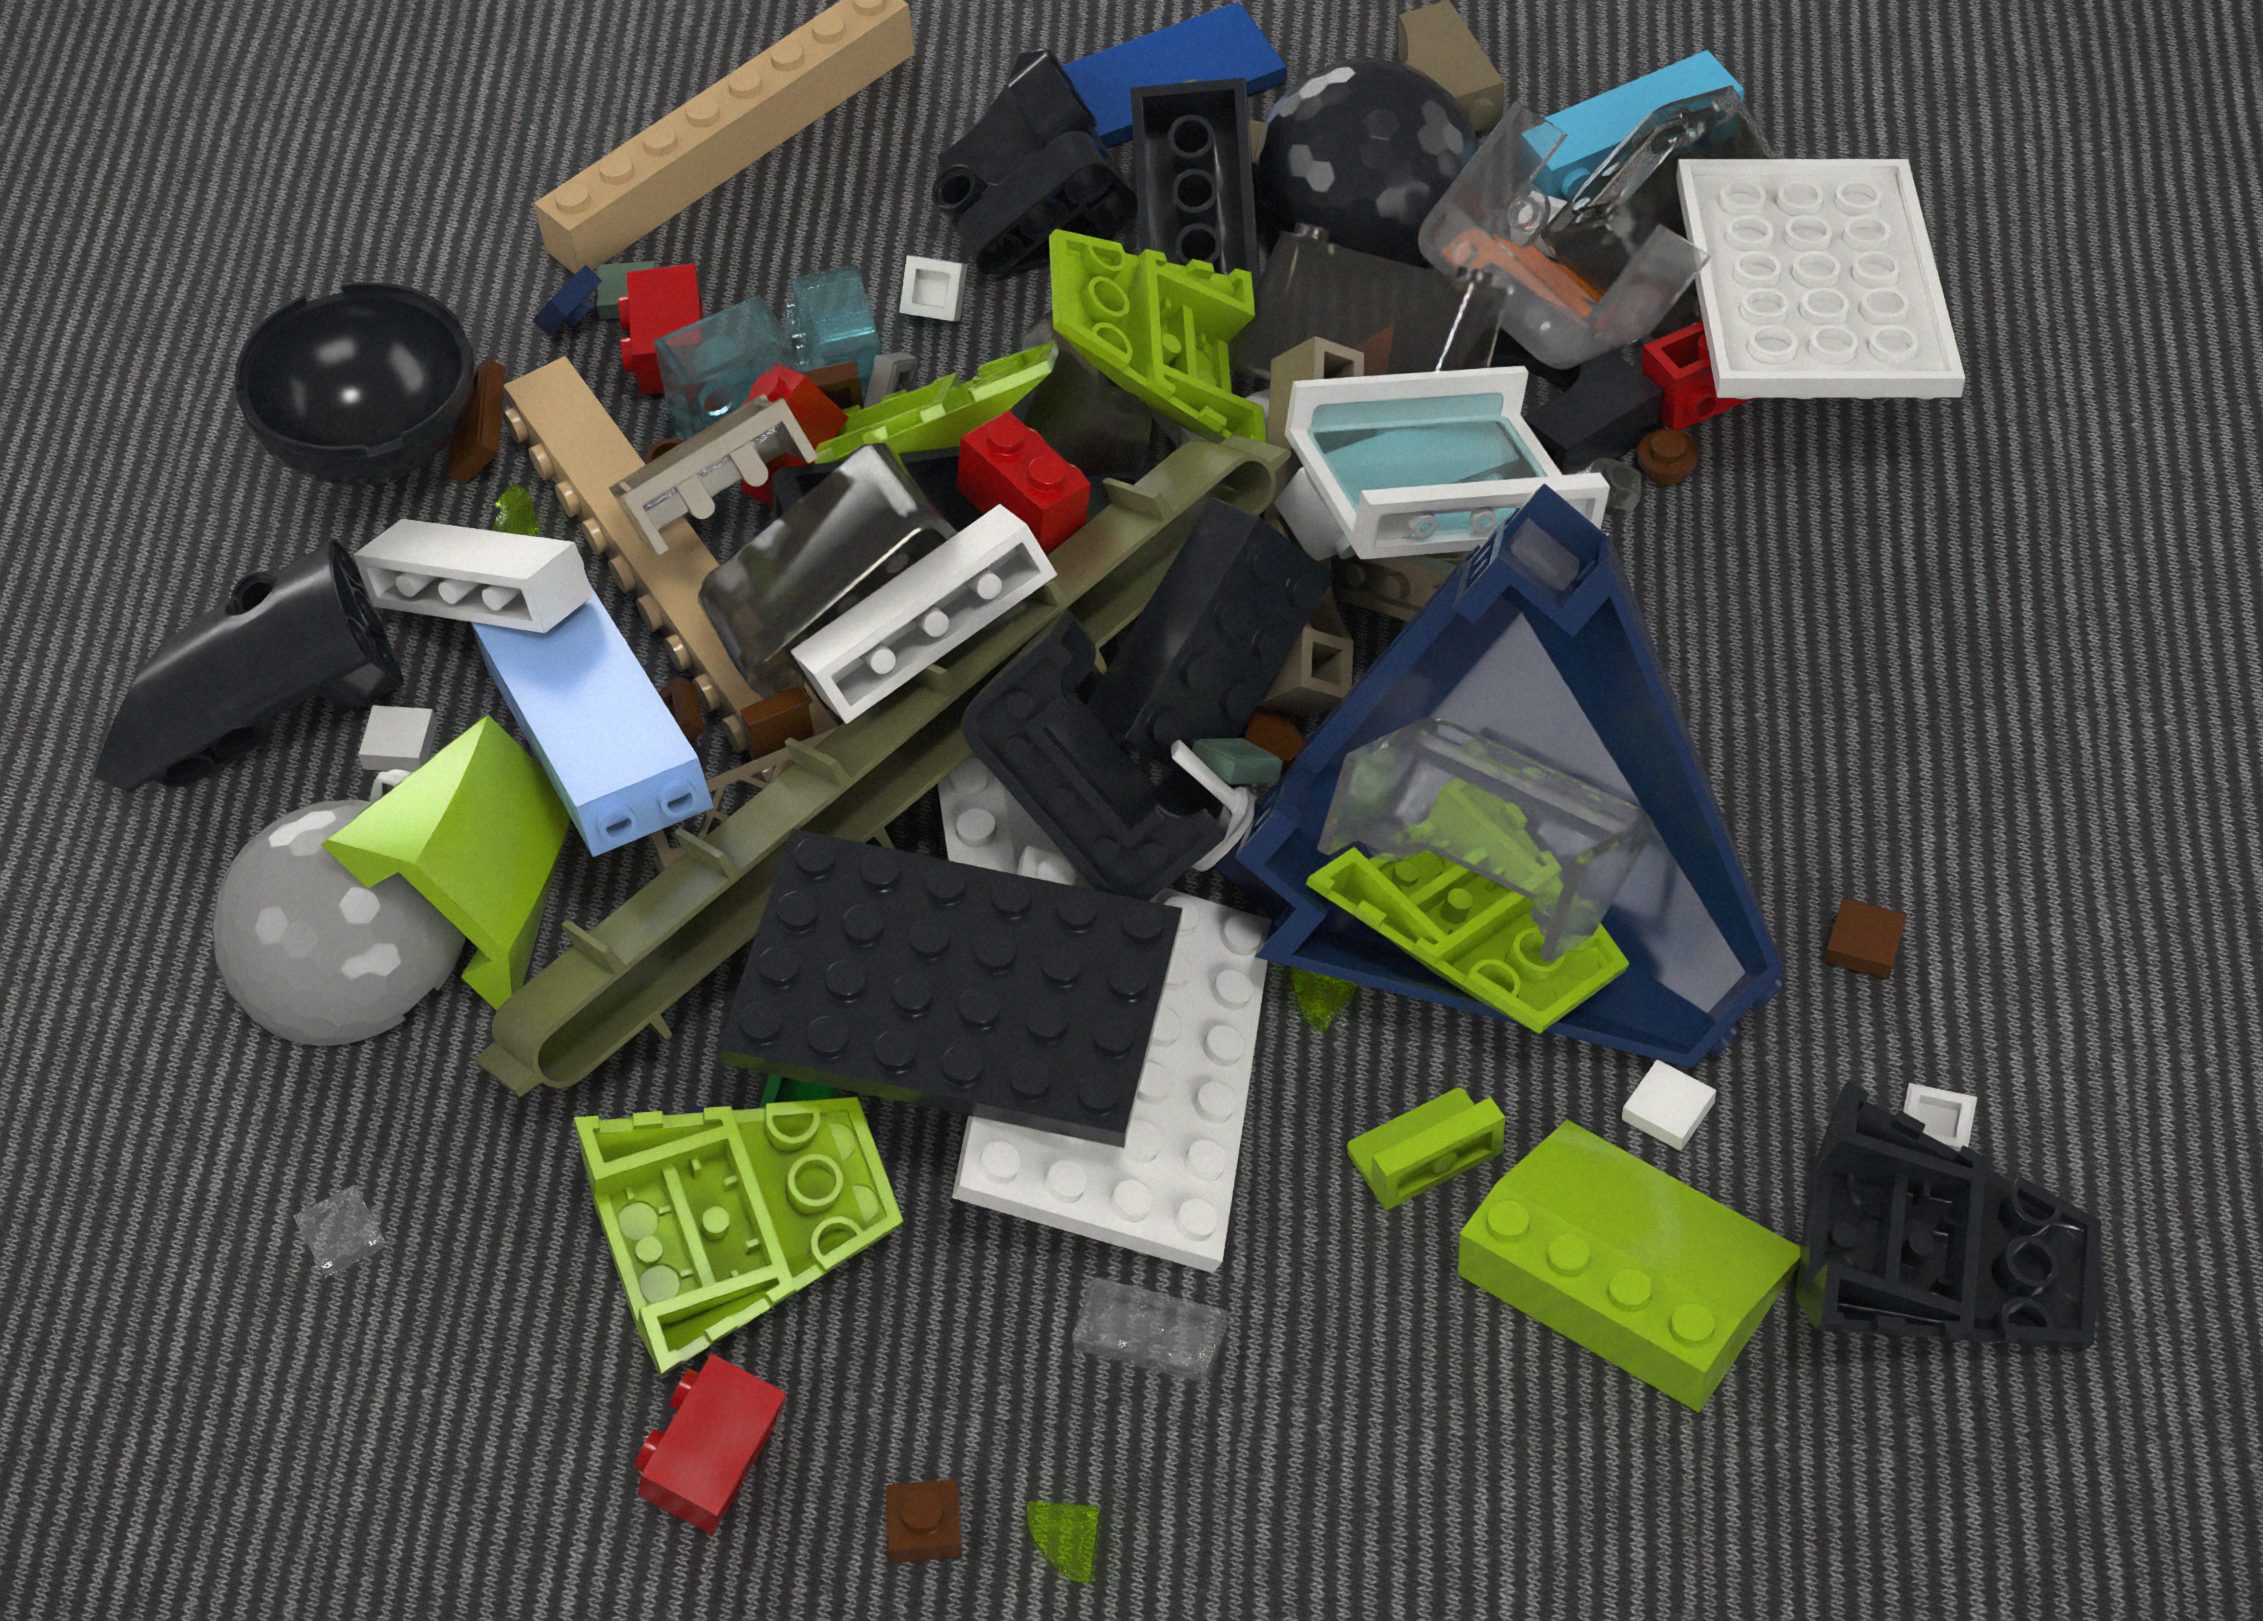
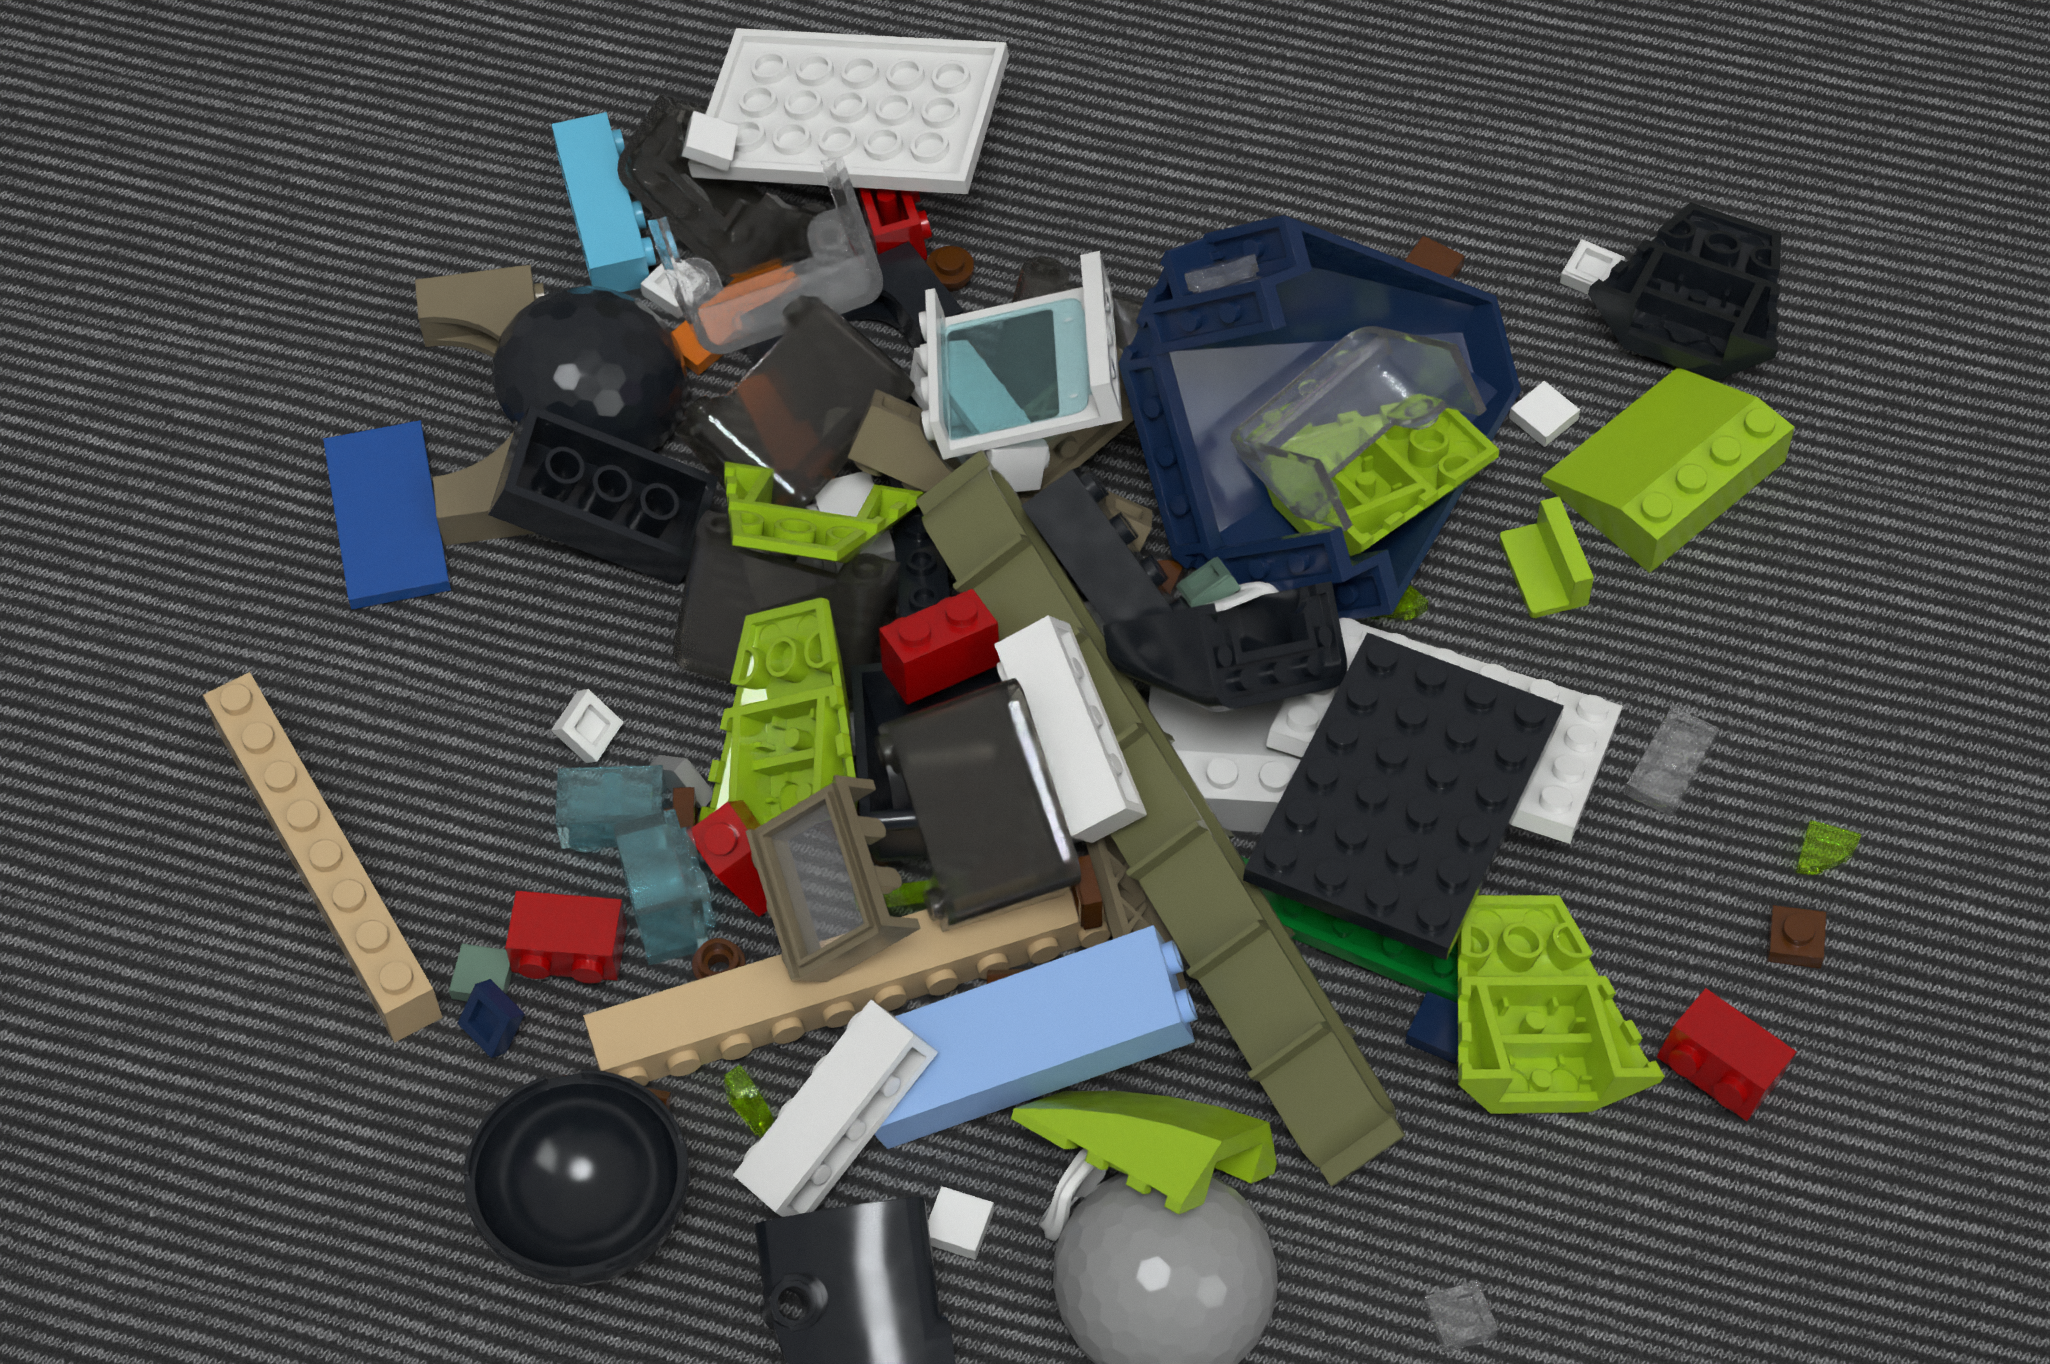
camera: 80 degrees left, 5 degrees up
(1031, 171) = (449, 623): black panel -> none
(1701, 156) = (710, 140): none -> white tile

